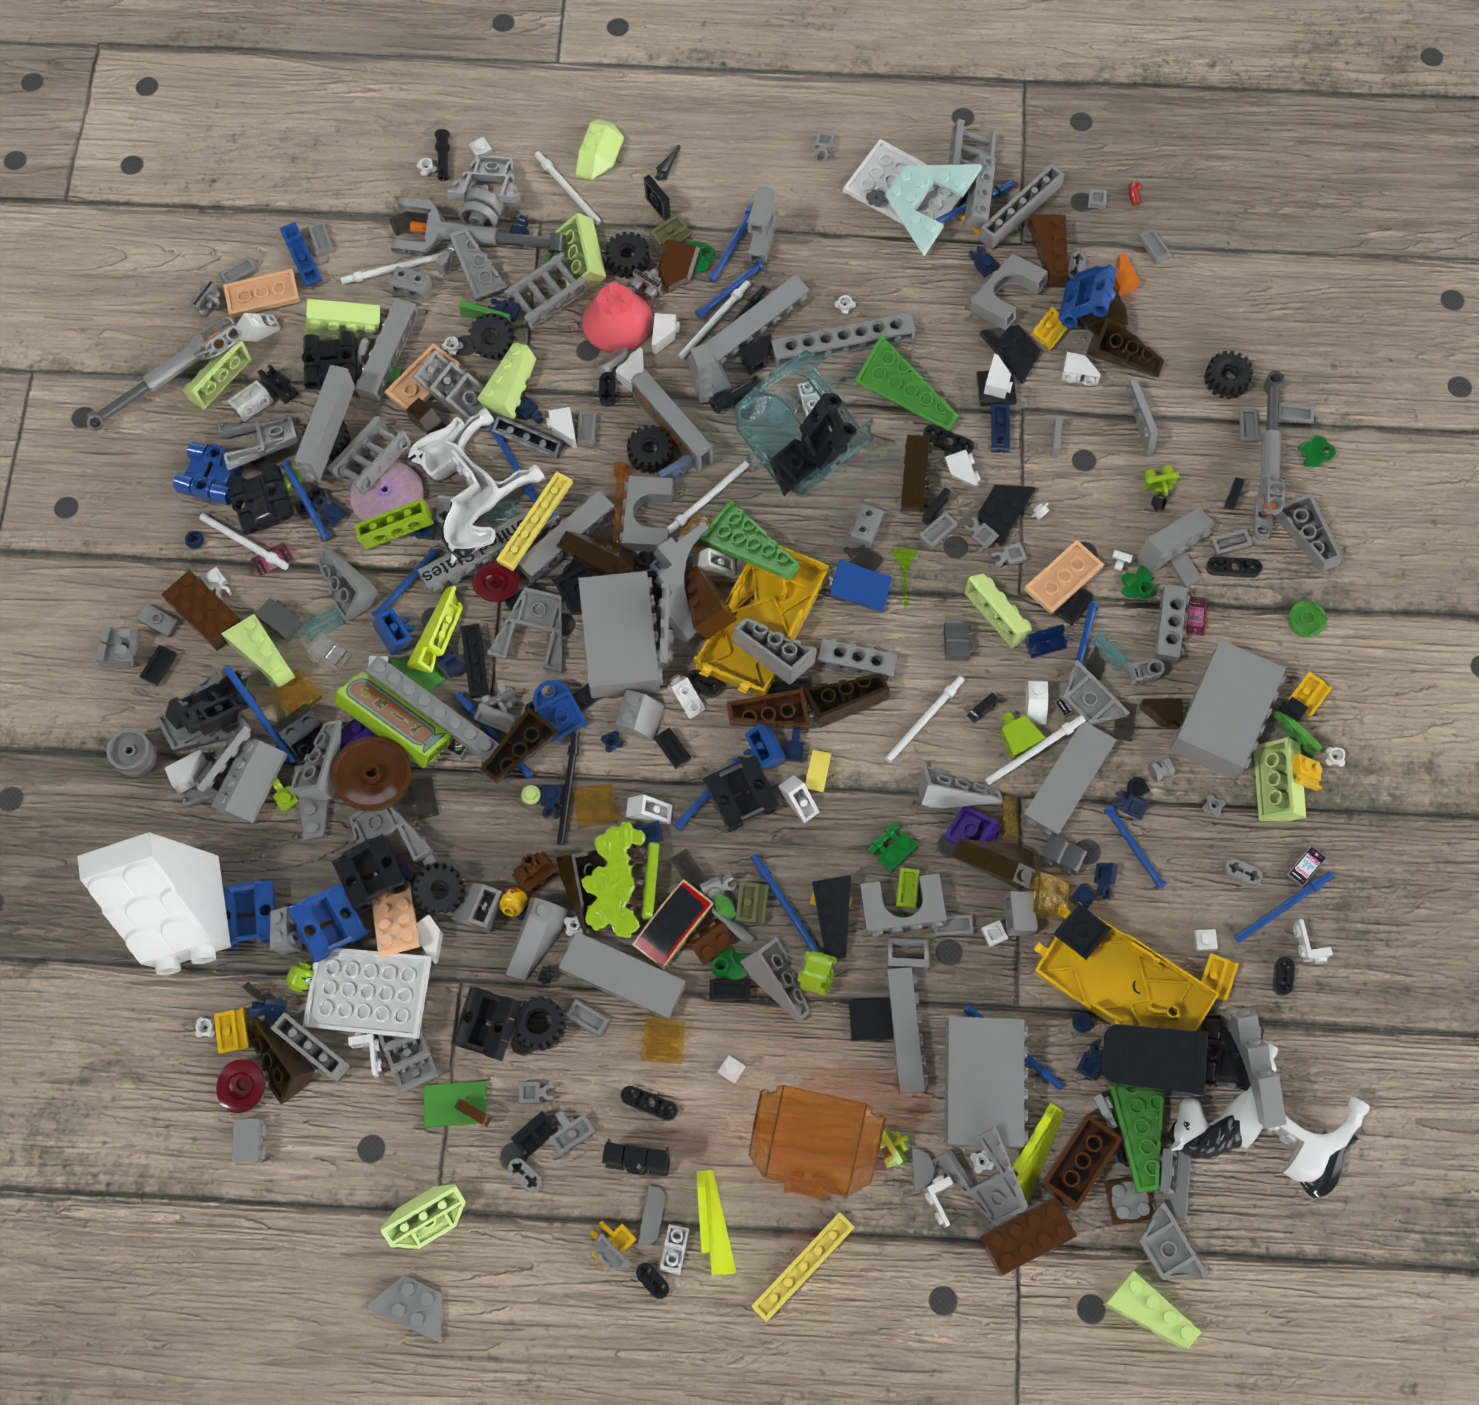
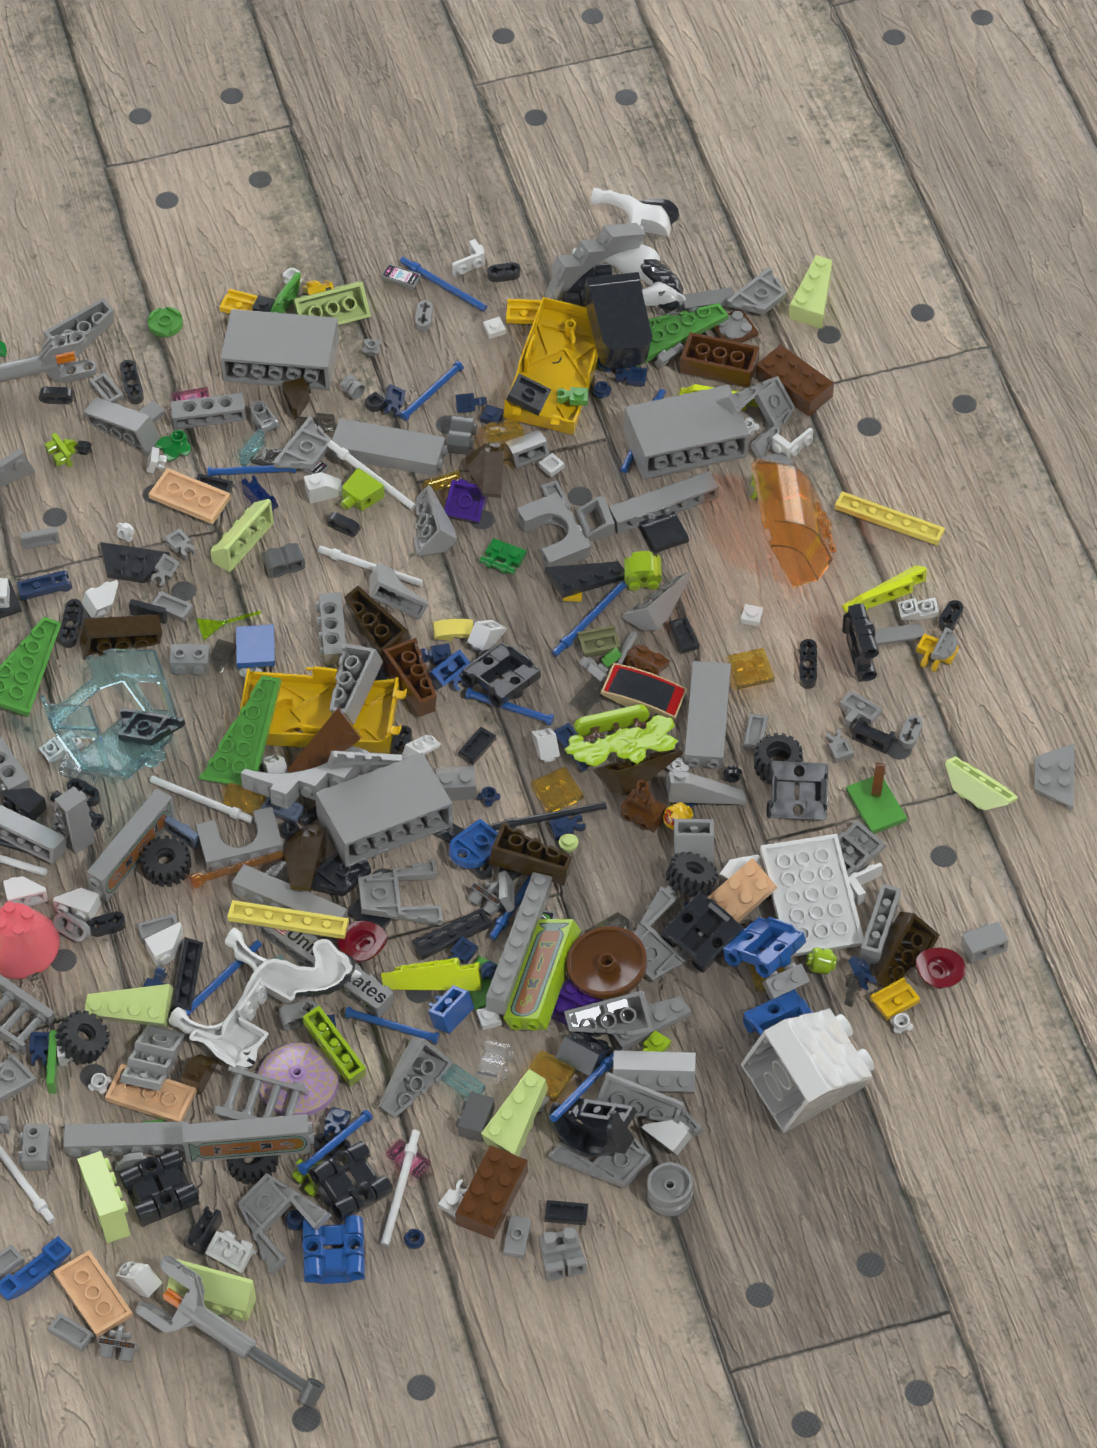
camera: 110 degrees left, 15 degrees down
(416, 674) = (488, 970): none -> dark blue plate
(731, 962) = (659, 640): green plate -> none
(821, 443) = (116, 708): black piece -> none
(876, 719) = (389, 590): none -> light grey arch
(907, 888) = (536, 535): lime plate -> none
(1075, 987) = (576, 396): none -> bright green plate

